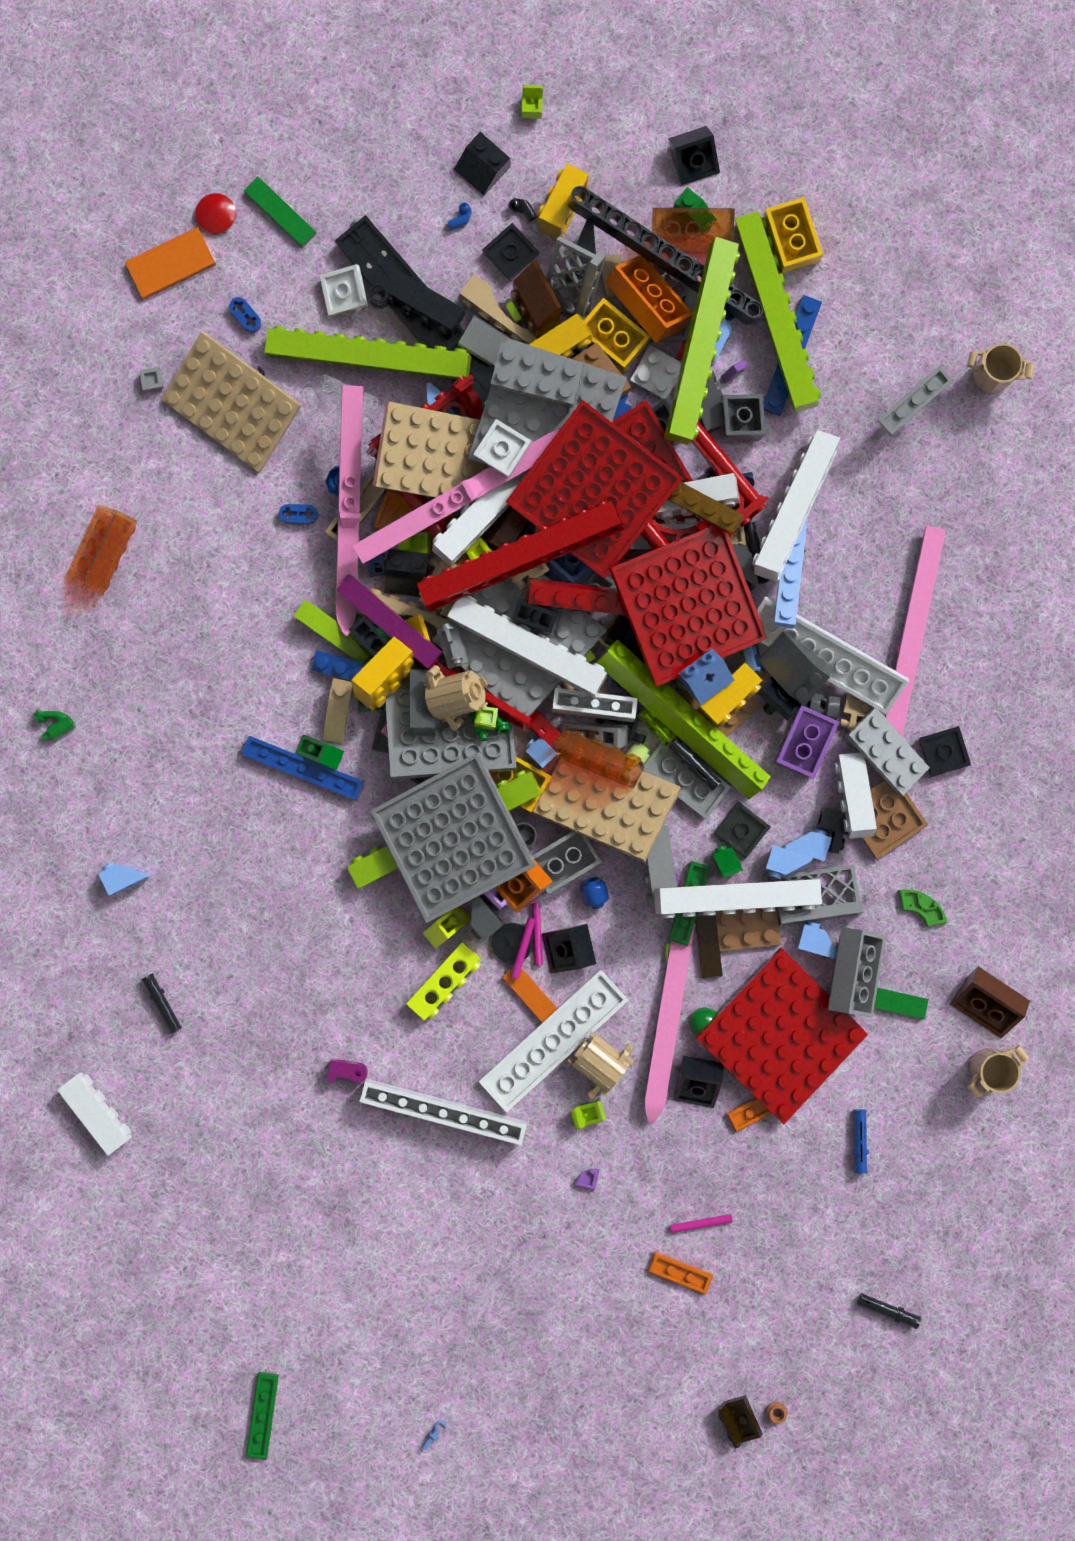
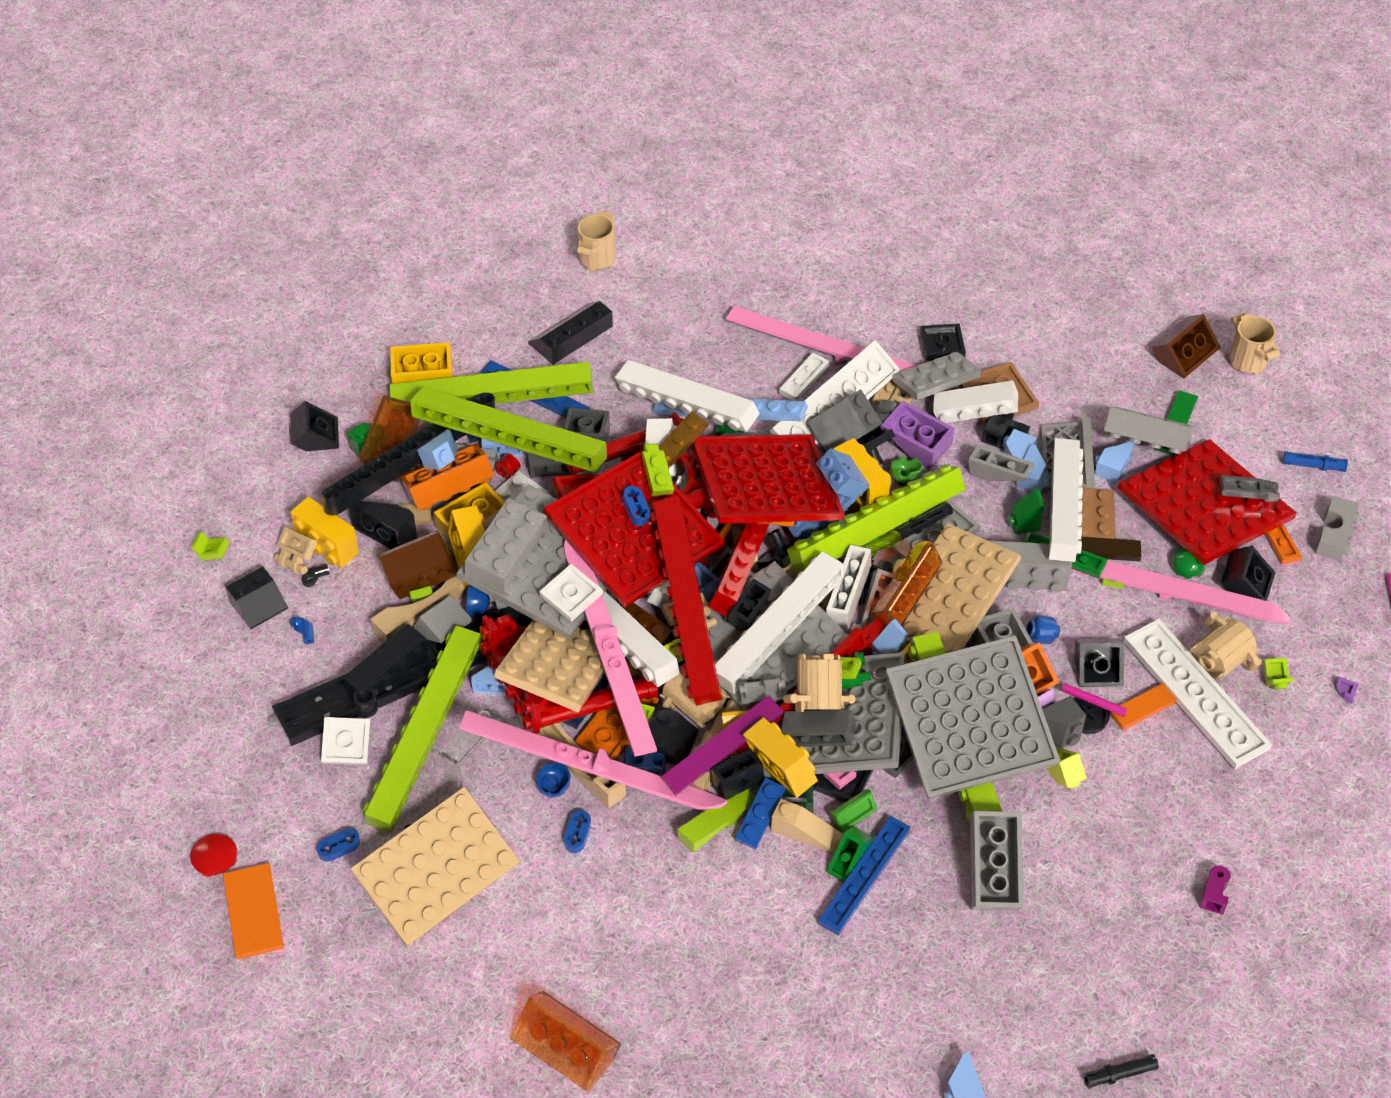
camera: 75 degrees left, 35 degrees down
(151, 379) = (381, 951): light grey plate -> none
(280, 211) = (235, 792): green tile -> none
(324, 878) = (996, 861): none -> light grey brick
(363, 748) = (854, 810): none -> bright green tile
(419, 1003) = (1126, 790): neon yellow brick -> none
(443, 1111) = (1267, 801): white brick -> none
(510, 251) = (356, 591): black plate -> none
(537, 939) = (1102, 693): dark pink bar -> none
(539, 181) = (294, 543): none -> tan plate
(586, 287) = (418, 508): light grey fence -> none
(614, 490) = (639, 505): none -> blue beam
(661, 496) = (657, 470): none -> lime hinge
(670, 283) = (438, 451): none -> light blue slope
(742, 830) = (992, 503): pearl dark grey tile -> none
(761, 737) = (904, 470): none -> bright green hair
(778, 830) = (998, 466): none -> light grey slope
(793, 1170) = (1333, 541): none -> light grey arch
(796, 1074) = (1249, 488): none -> dark grey hinge
(865, 619) = (804, 377): none -> white plate
(876, 370) = (573, 331): none -> black slope
(913, 402) = (610, 293): light grey fence -> none
(923, 905) = (1088, 382): bright green tile -> none

